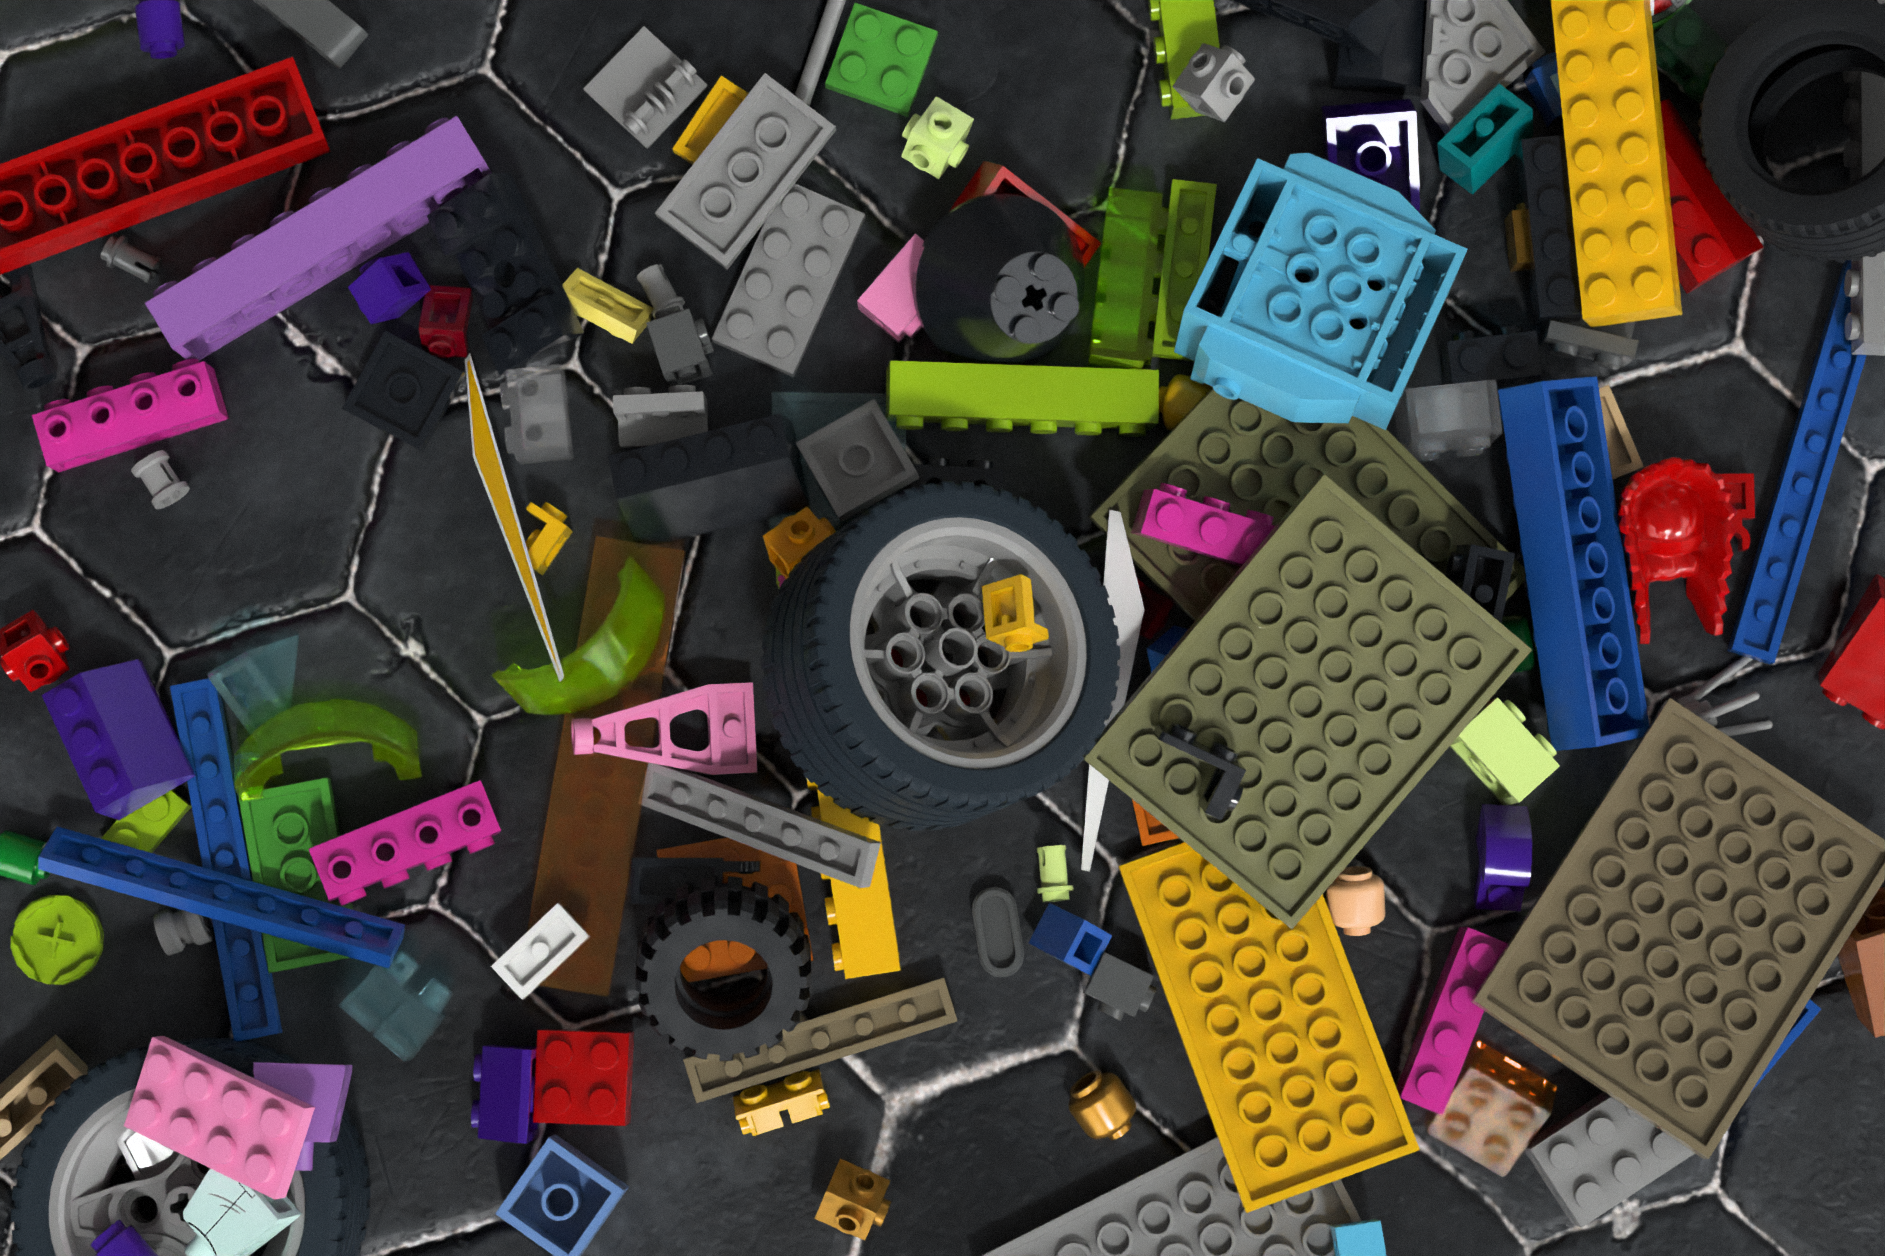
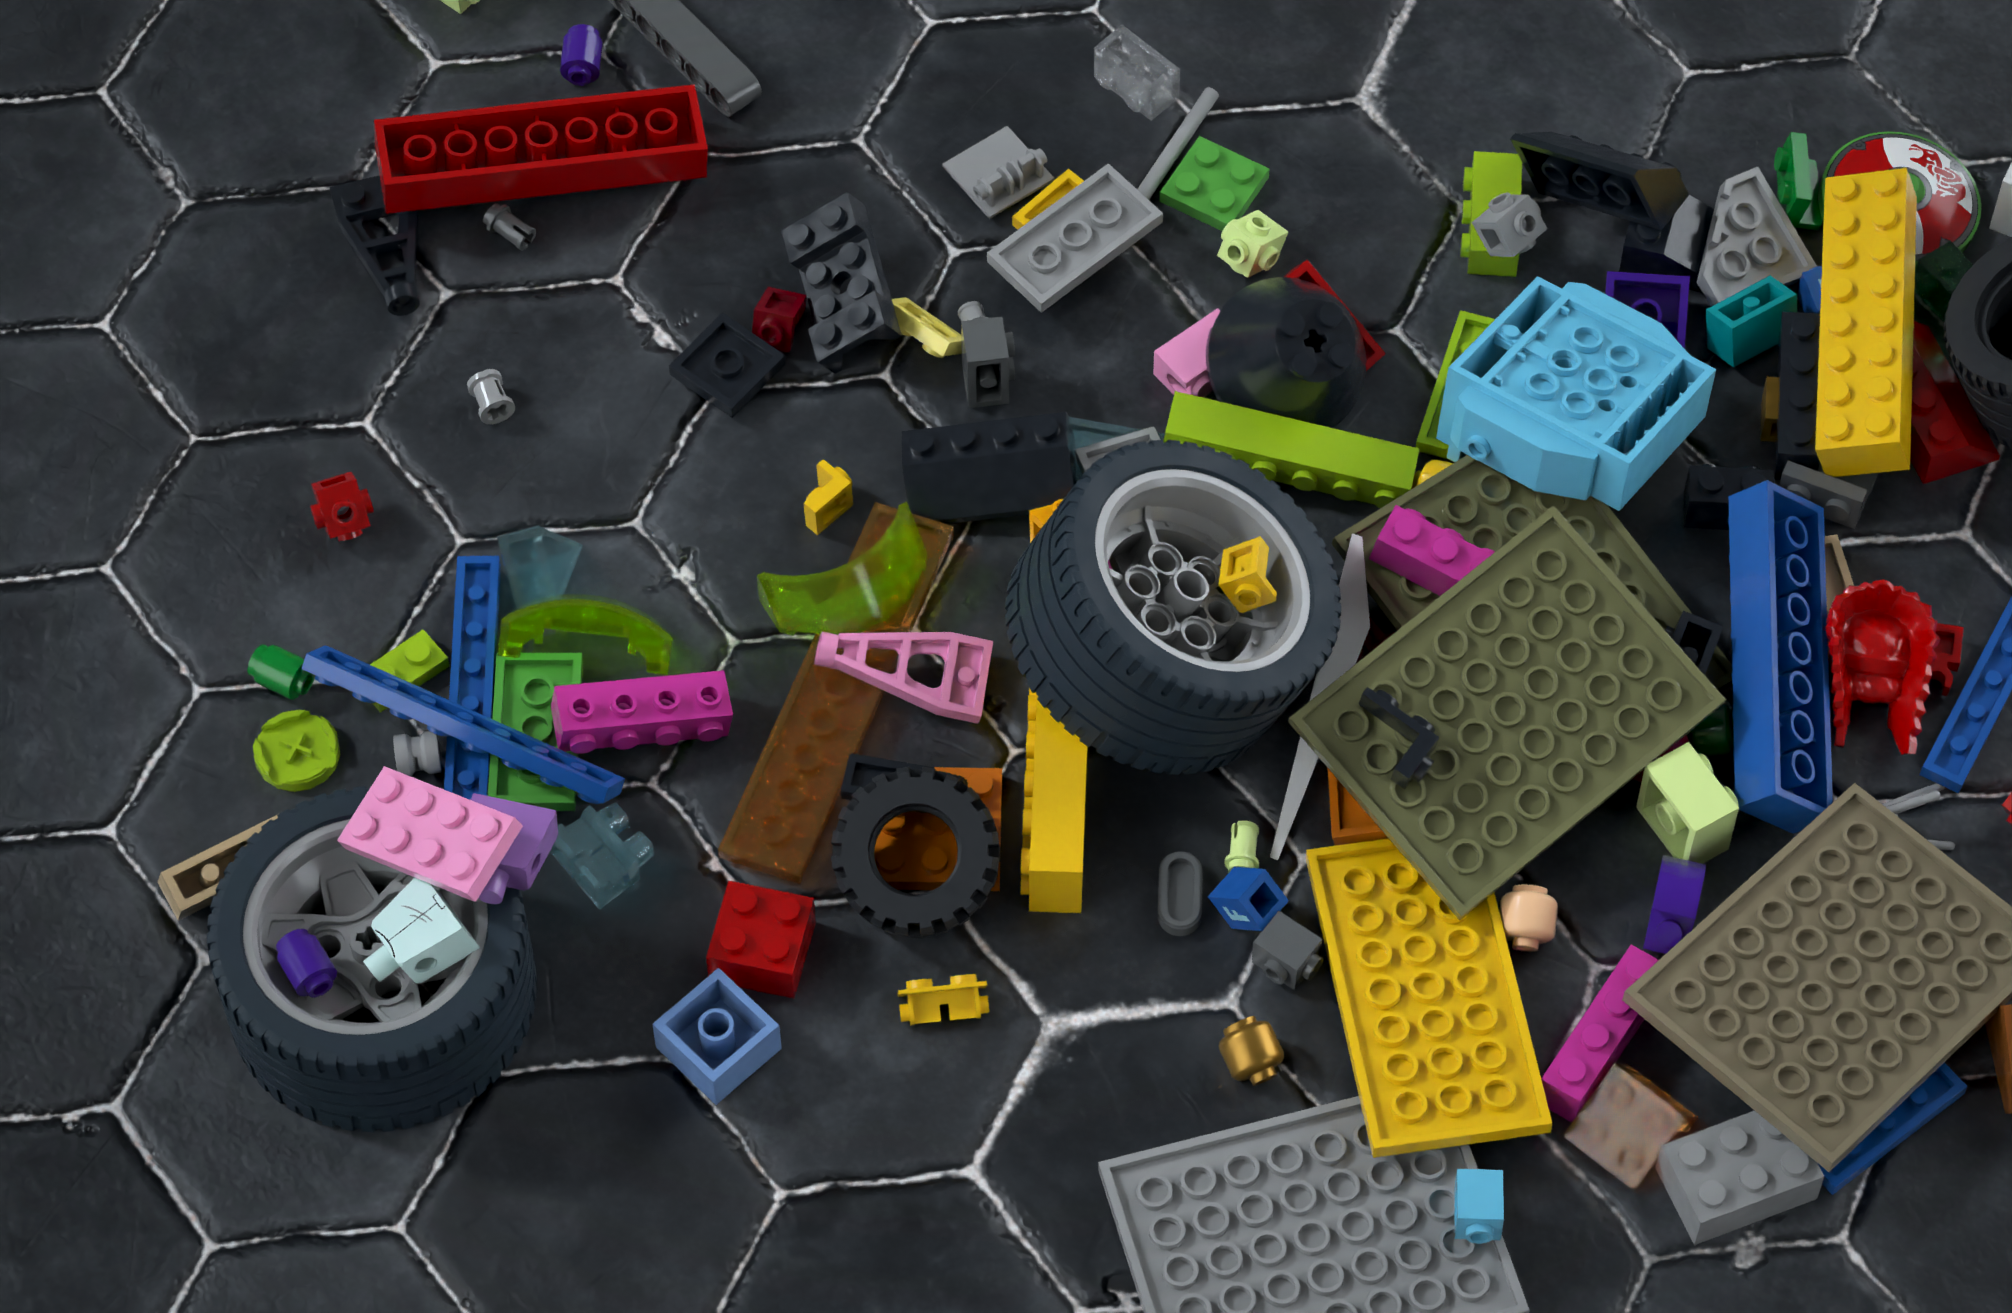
camera: 10 degrees right, 25 degrees down
(118, 737) = (401, 584): dark purple slope -> none
(129, 416) = (477, 341): dark pink brick -> none
(317, 242) = (677, 230): medium lavender brick -> none
(388, 287) = (734, 278): dark purple brick -> none
(496, 485) = (794, 451): yellow sticker -> none
(505, 1094) = (685, 935): dark purple slope -> none
(538, 414) = (845, 400): clear brick -> none
(540, 951) = (746, 819): white plate -> none
(659, 417) = (952, 405): light grey bracket -> none
(761, 824) = (977, 736): light grey plate -> none
(788, 279) = (1095, 337): light grey plate -> none
(827, 1039) = (993, 950): dark tan plate -> none
(854, 1200) = (995, 1086): pearl gold brick -> none
(1125, 280) = (1403, 375): clear neon green wedge -> none
(1448, 419) = (1682, 527): clear brick -> none

